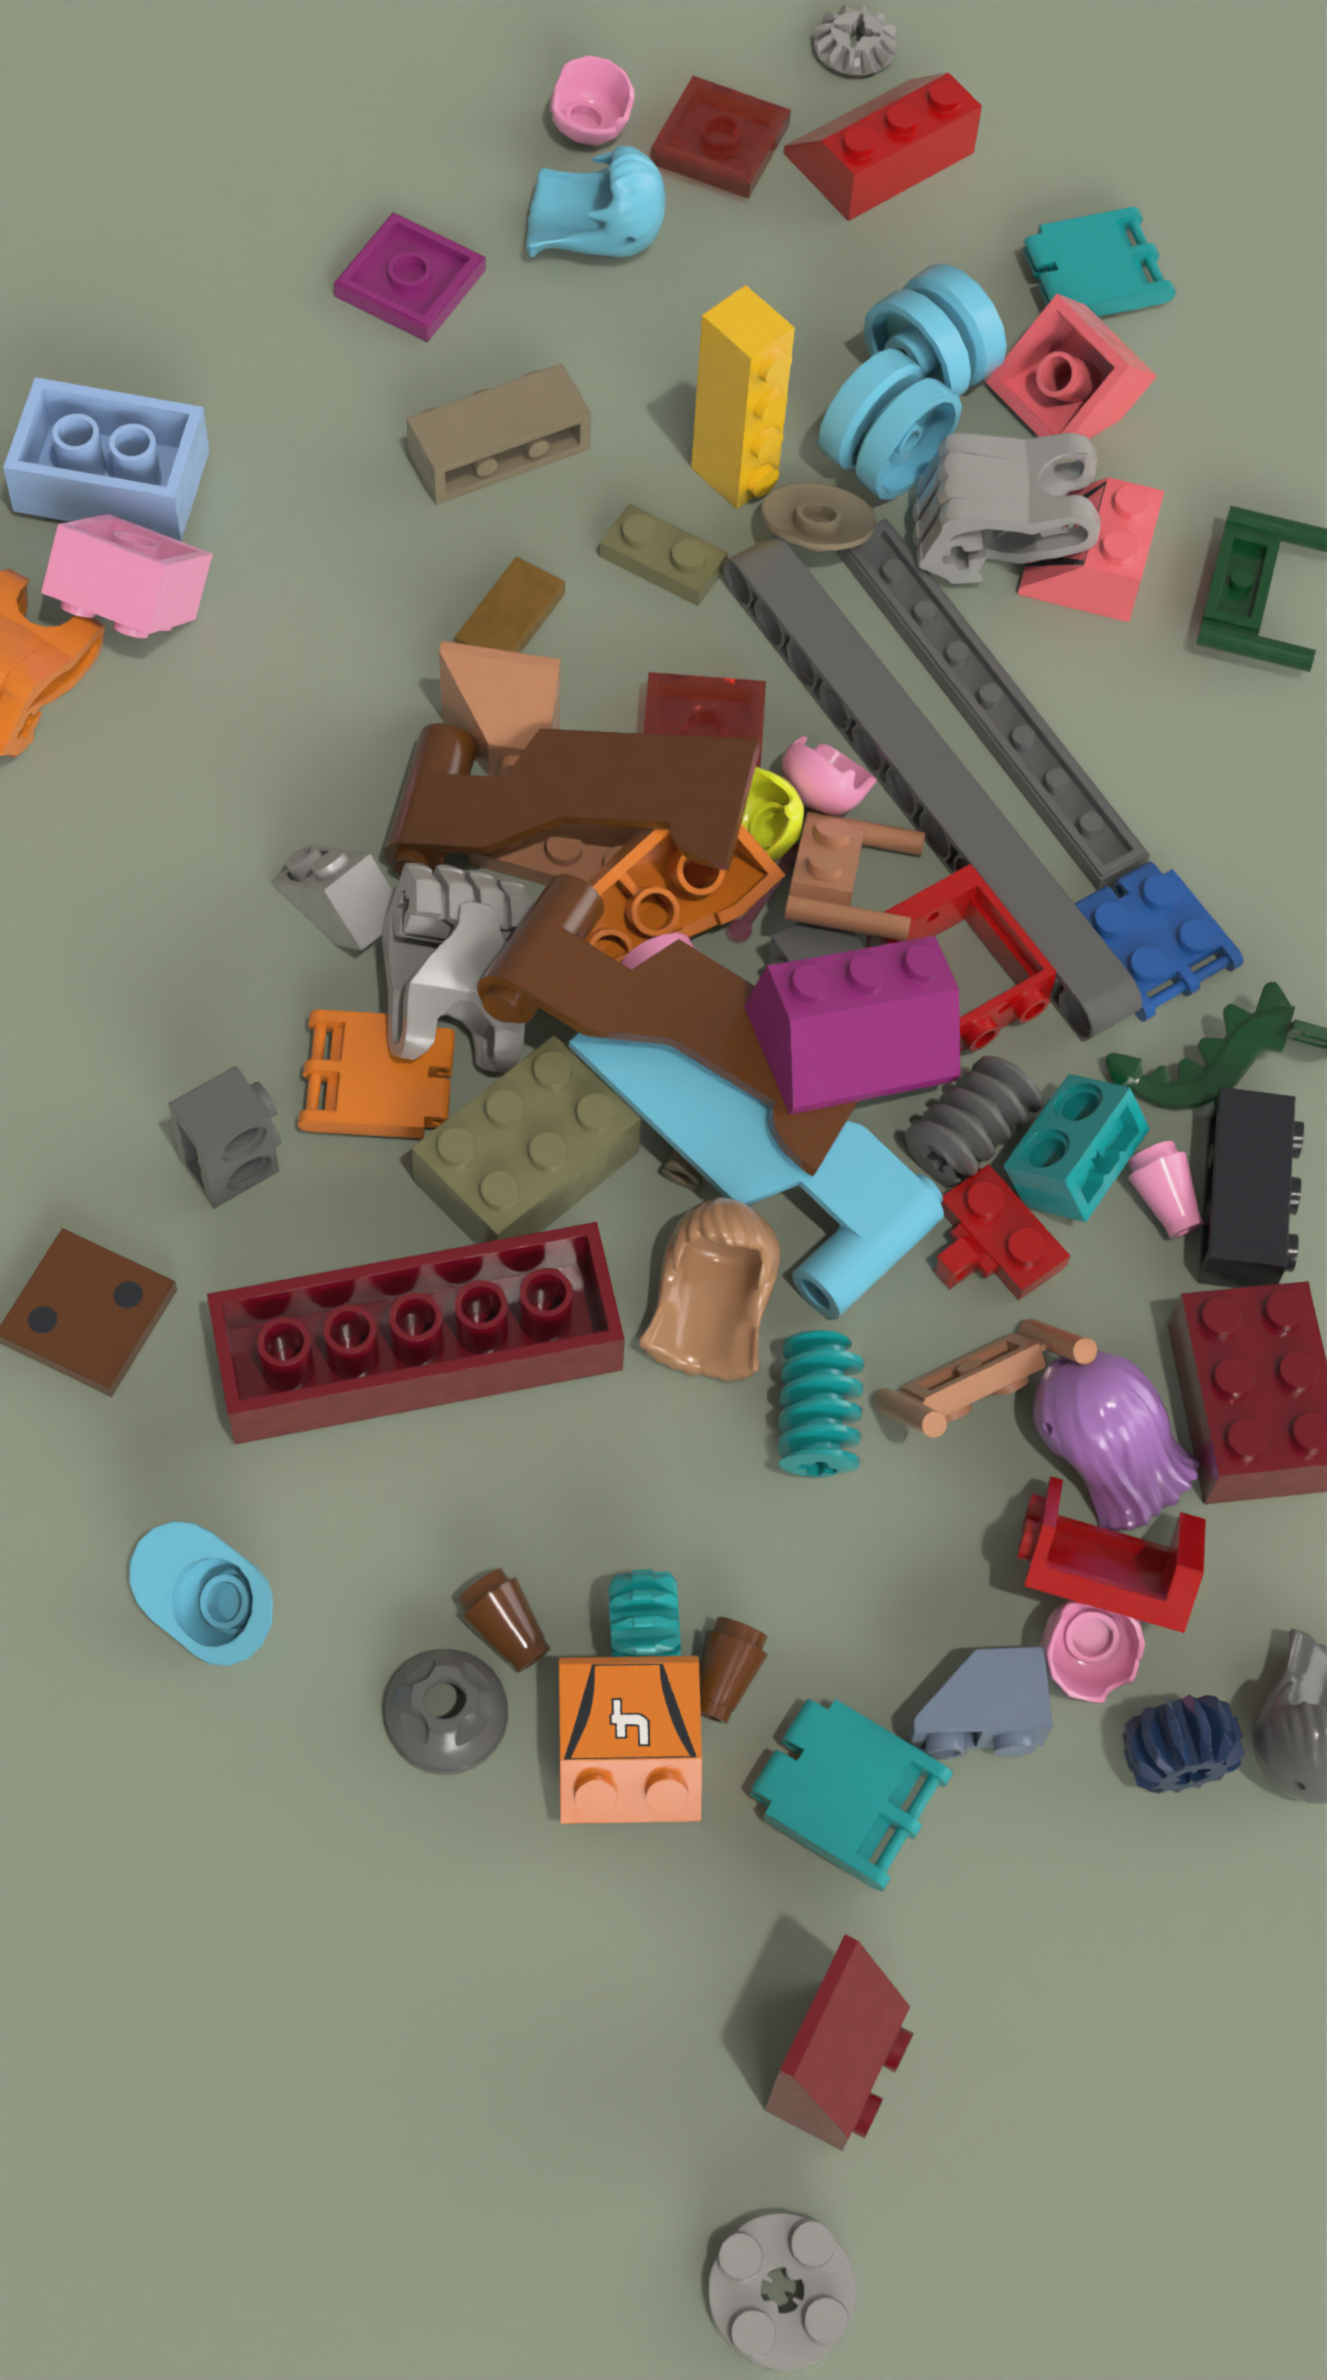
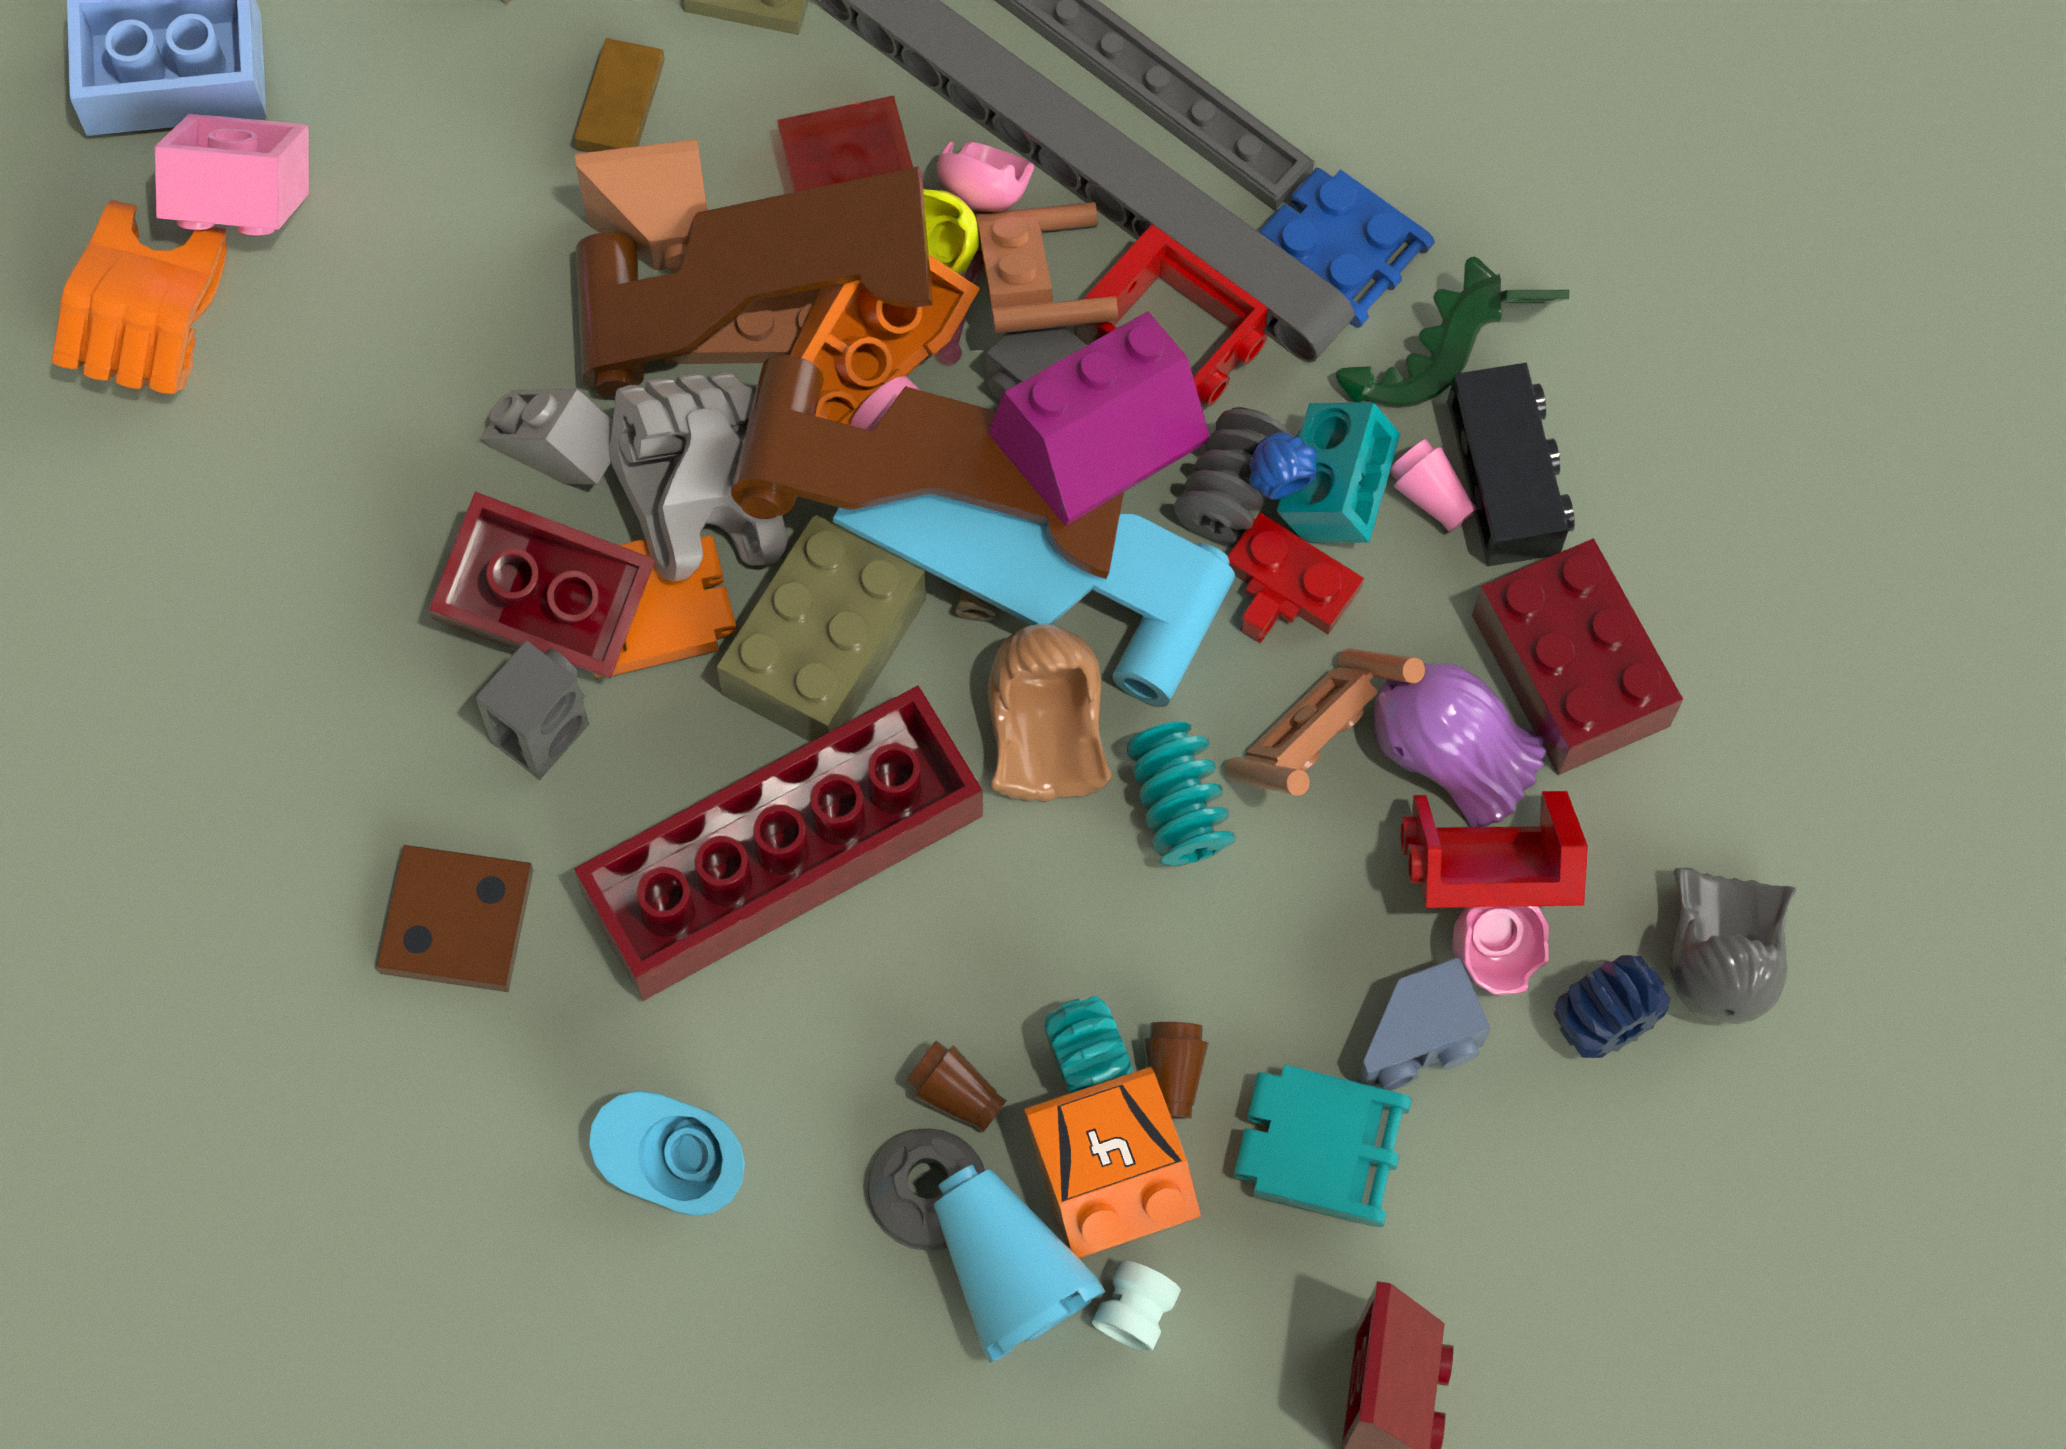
camera: 15 degrees left, 5 degrees up
(273, 1022) = (542, 584): none -> dark red slope
(494, 1806) = (1008, 1262): none -> medium azure cone
(612, 1891) = (1138, 1306): none -> light aqua wheel
(1020, 1121) = (1282, 465): none -> blue piece

